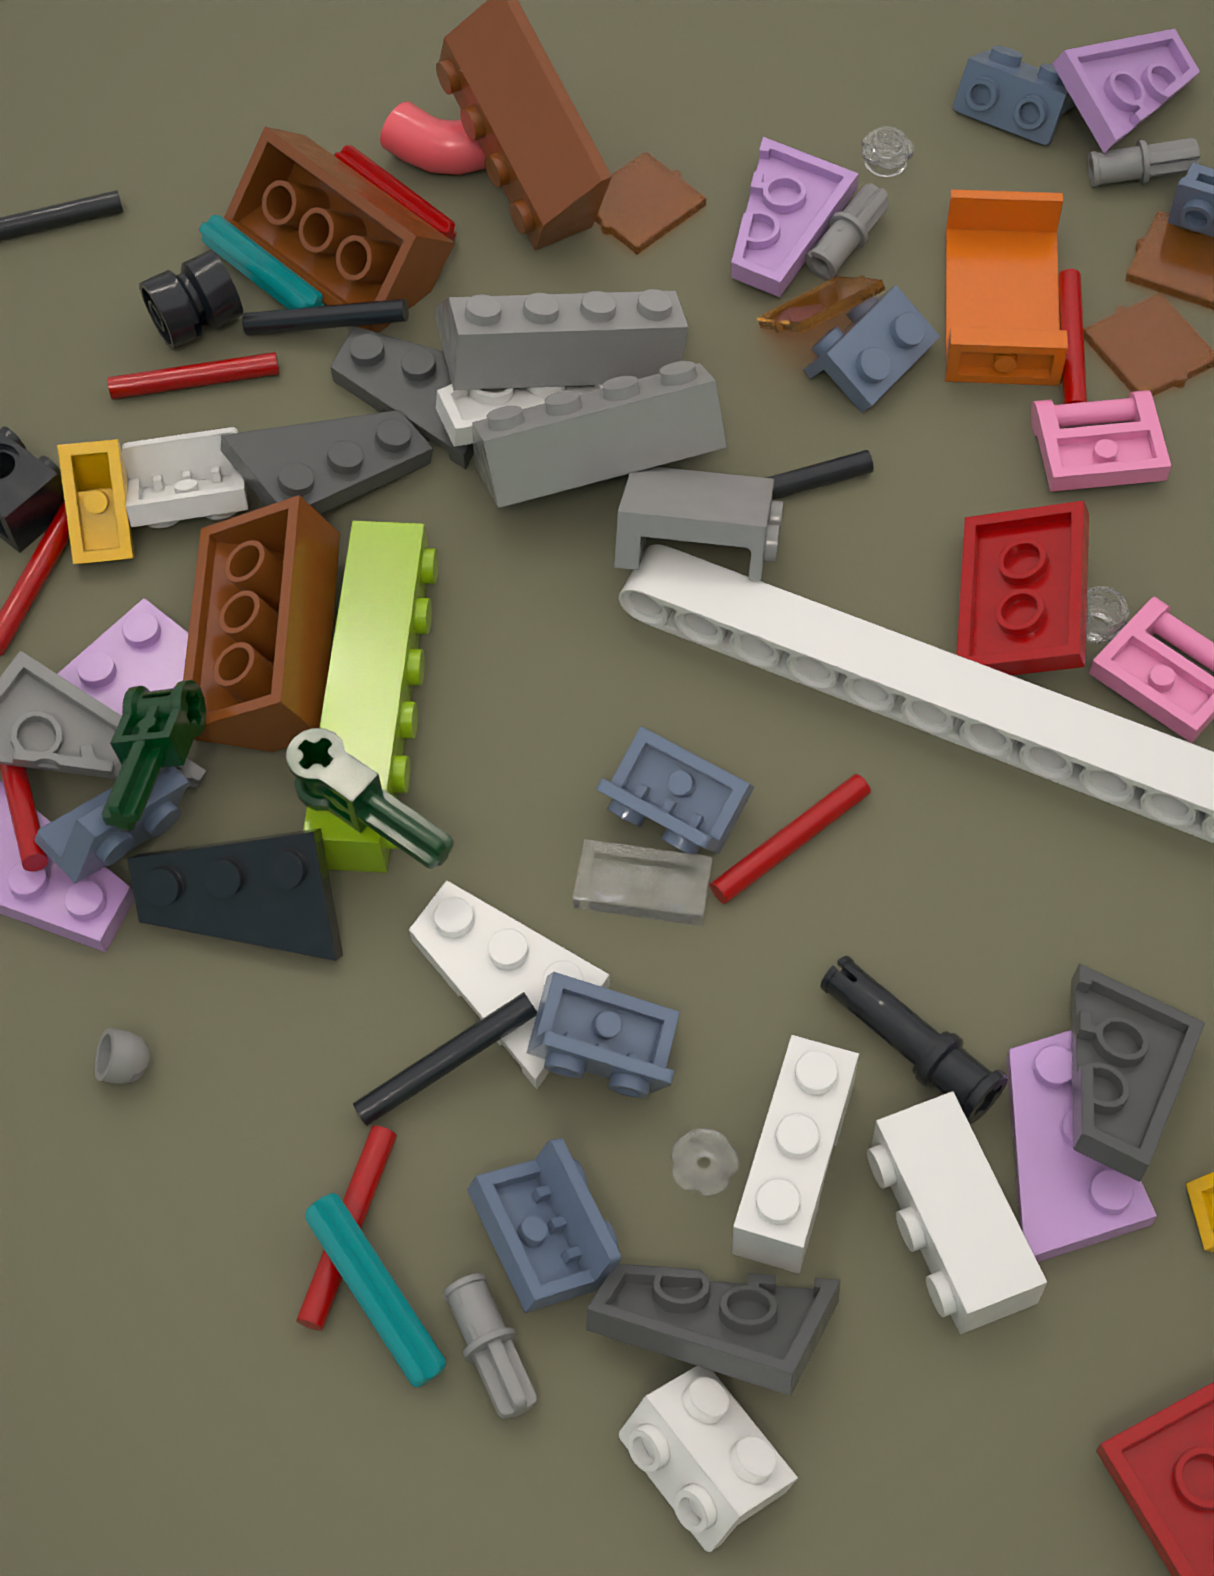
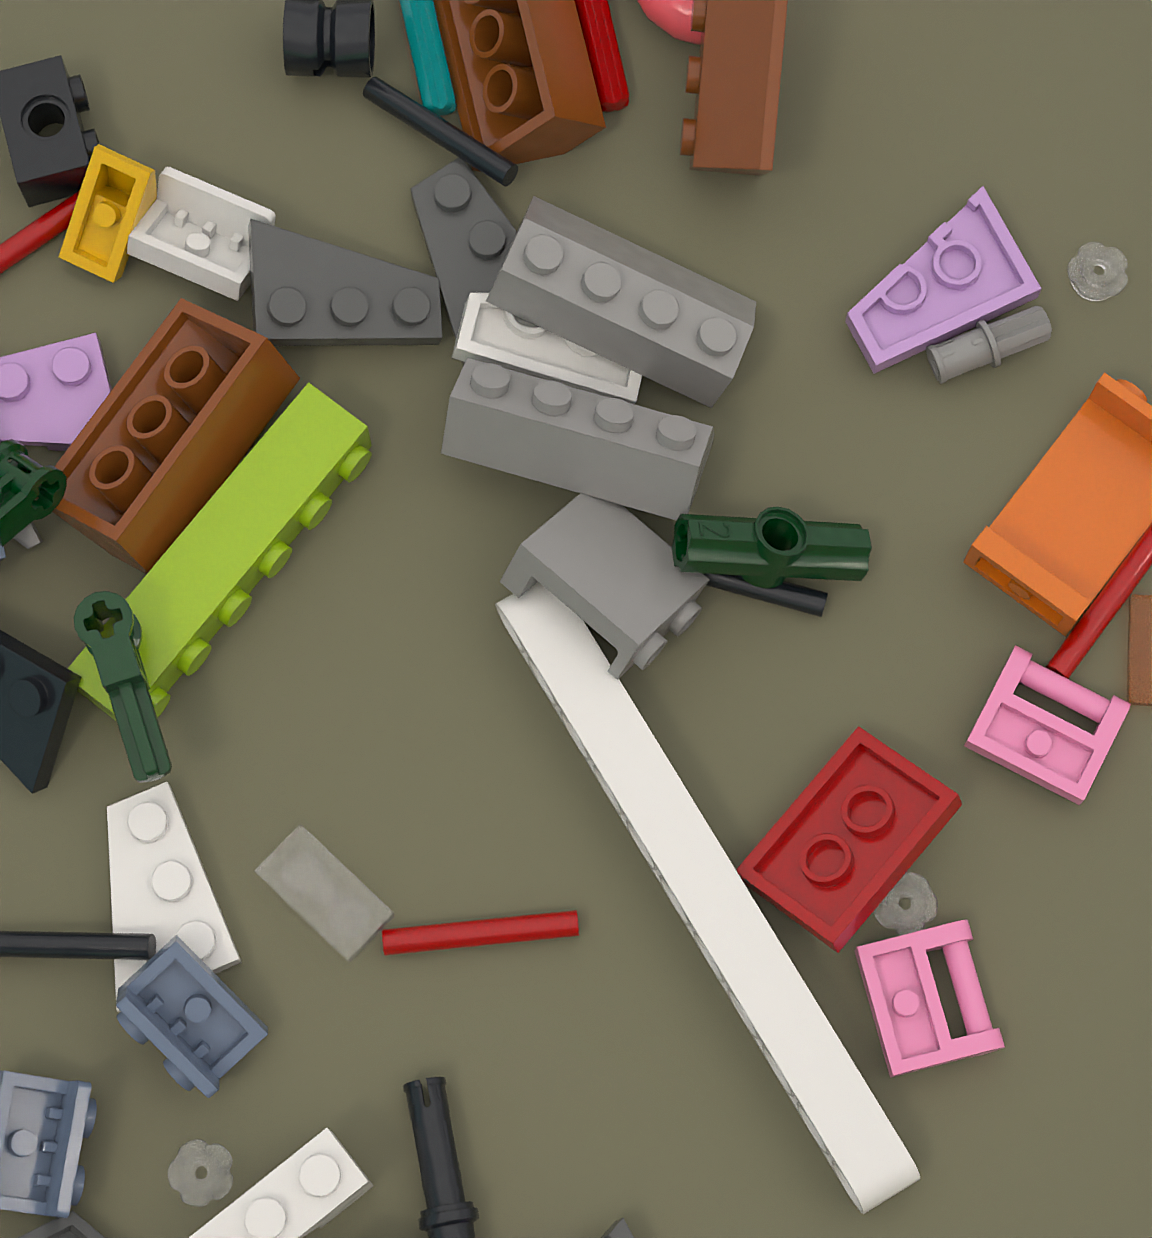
camera: 30 degrees right, 15 degrees up
(193, 375) = (288, 115): red bar -> none
(646, 203) = (826, 179): clear orange piece -> none
(678, 791) = (405, 831): sand blue bracket -> none
(802, 431) = (771, 547): none -> dark green piece
(820, 304) = (895, 414): clear orange piece -> none
(874, 348) = (914, 487): sand blue bracket -> none

